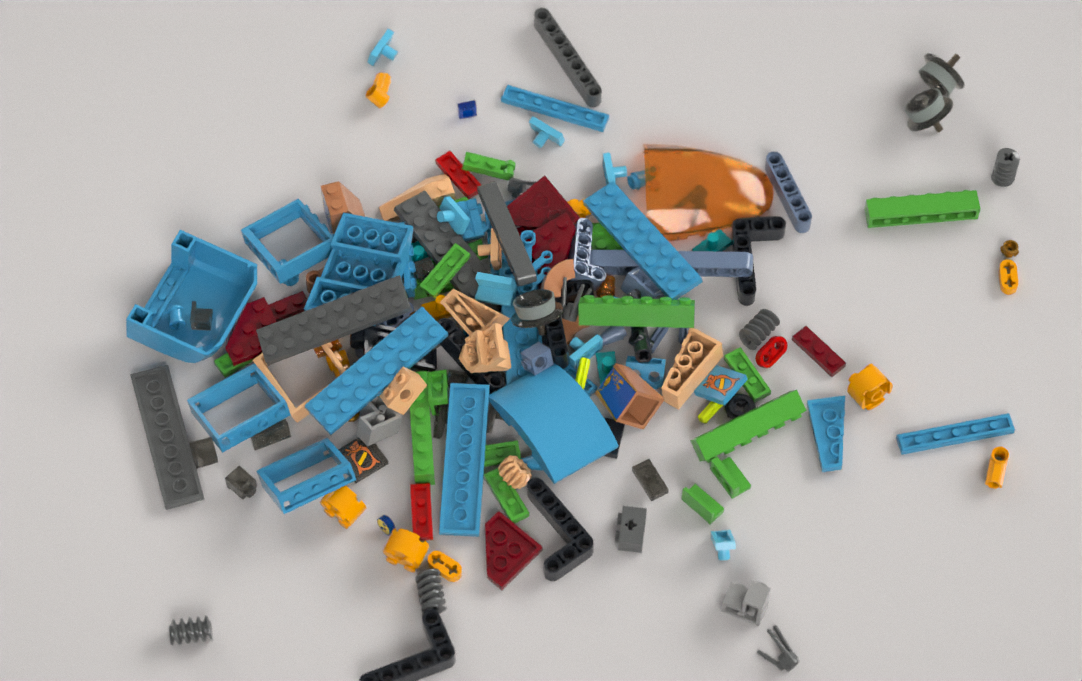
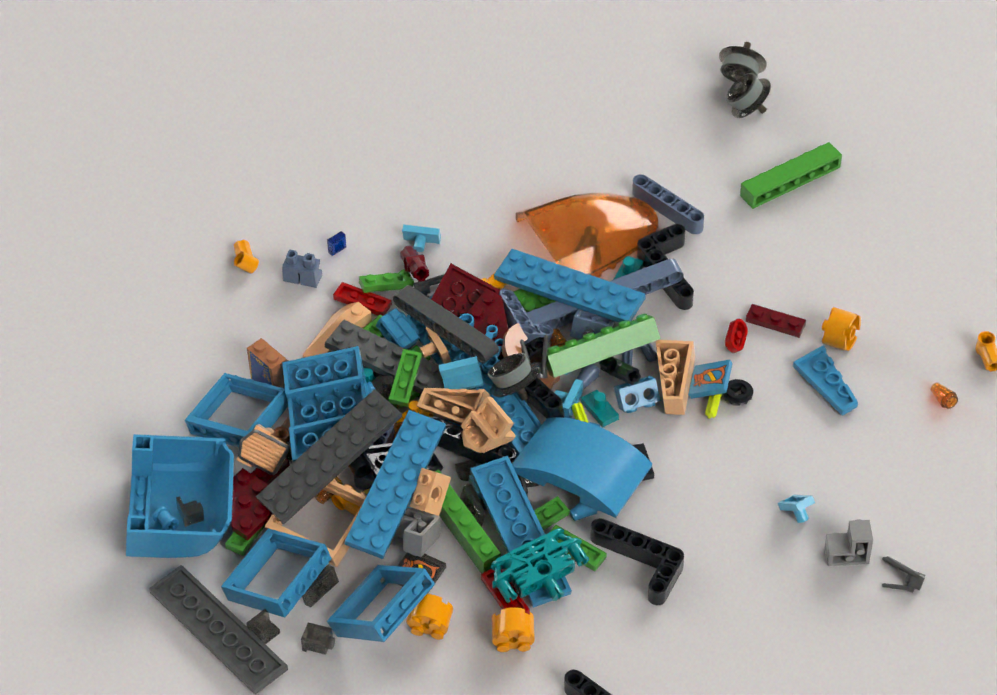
camera: 25 degrees left, 10 degrees down
(286, 287) = (262, 450): none -> light nougat piece
(383, 49) = (227, 222): medium azure tile -> none
(385, 524) = (479, 618): clear blue tile -> none
(421, 123) = (301, 269): none -> sand blue hips
(429, 590) = (556, 656): dark grey piece -> none
(437, 389) = (460, 480): bright green panel -> none
(446, 562) = (555, 632): light orange beam -> none
(453, 214) = (384, 329): medium azure tile -> none
(458, 489) = (538, 555): none -> teal piece
(507, 550) = (605, 593): dark red plate -> none
(514, 472) = (573, 522): light nougat gear -> none
(520, 159) = (414, 263): none -> dark red piece
(536, 358) = (535, 418): sand blue brick -> none
(555, 108) = (415, 214): dark azure tile -> none
(567, 57) = (403, 169): dark grey beam -> none
(612, 172) = (500, 246): medium azure tile -> none
(628, 397) = (637, 418): slope -> none
(631, 539) = (707, 528): dark grey brick -> none
(636, 180) = (529, 243): dark azure cone -> none
(650, 479) = (696, 482): clear smoke tile -> none
(702, 503) = (755, 483): bright green panel -> none
(729, 476) = (764, 452): bright green panel -> none
(748, 425) = (755, 402): bright green brick -> none
(755, 385) = (740, 368): bright green plate -> none
(758, 328) = (714, 321): dark grey piece -> none
(928, 496) = (945, 396): none -> clear orange cone
(955, 434) = (934, 340): dark azure tile -> none
(1003, 277) = (895, 202): light orange beam -> none
(1005, 167) = (841, 116): dark grey piece -> none
(1010, 244) = (884, 178): pearl gold plate -> none

